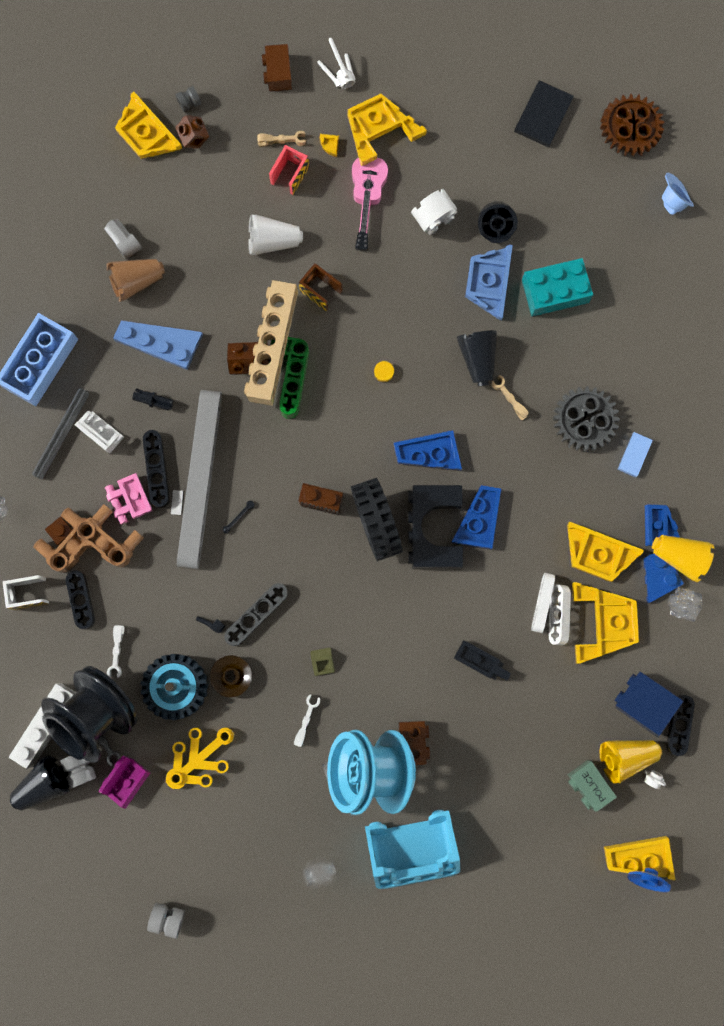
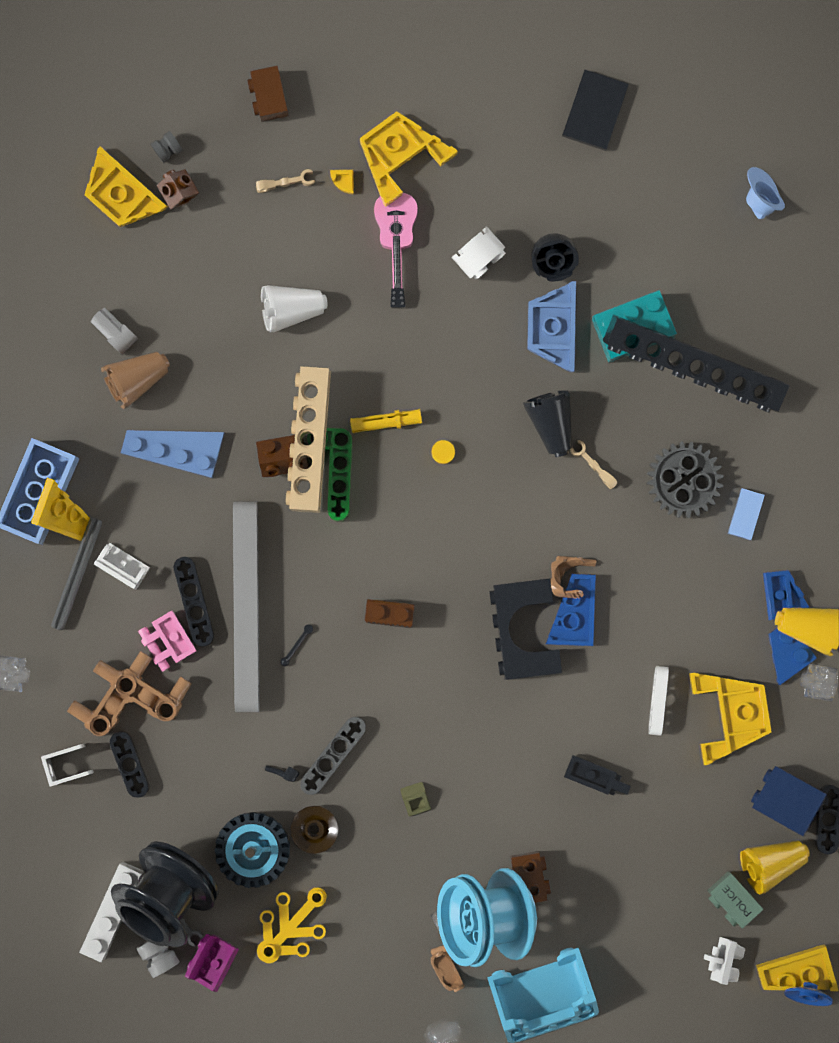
camera: 10 degrees left, 5 degrees up
(40, 785) = (118, 978): black cone -> none
(50, 376) = (59, 513): none -> yellow wing
(58, 530) = (93, 687): reddish brown plate -> none
(118, 633) = (179, 796): white piece -> none
(152, 399) = (178, 520): black axle -> none
(177, 502) = (223, 636): white piece -> none
(287, 154) = (296, 201): coral piece -> none
(301, 734) = (402, 885): white piece -> none
(317, 271) = (348, 341): reddish brown piece -> none
(329, 815) = (446, 969): none -> medium nougat helmet
(345, 77) = (351, 95): white plant -> none
(345, 339) = (383, 421): none -> yellow pin
(377, 519) = (457, 633): black tyre -> none
(429, 451) = (508, 541): blue wing -> none
(472, 478) = (558, 569): none -> medium nougat helmet
(557, 634) = (678, 696): white beam -> none
(575, 838) = (722, 960): none -> white hips
(599, 553) = (716, 635): yellow wing -> none
(650, 125) = (681, 115): reddish brown gear -> none
(654, 779) = (804, 883): white plate -> none
(669, 353) = (620, 329): none -> black brick

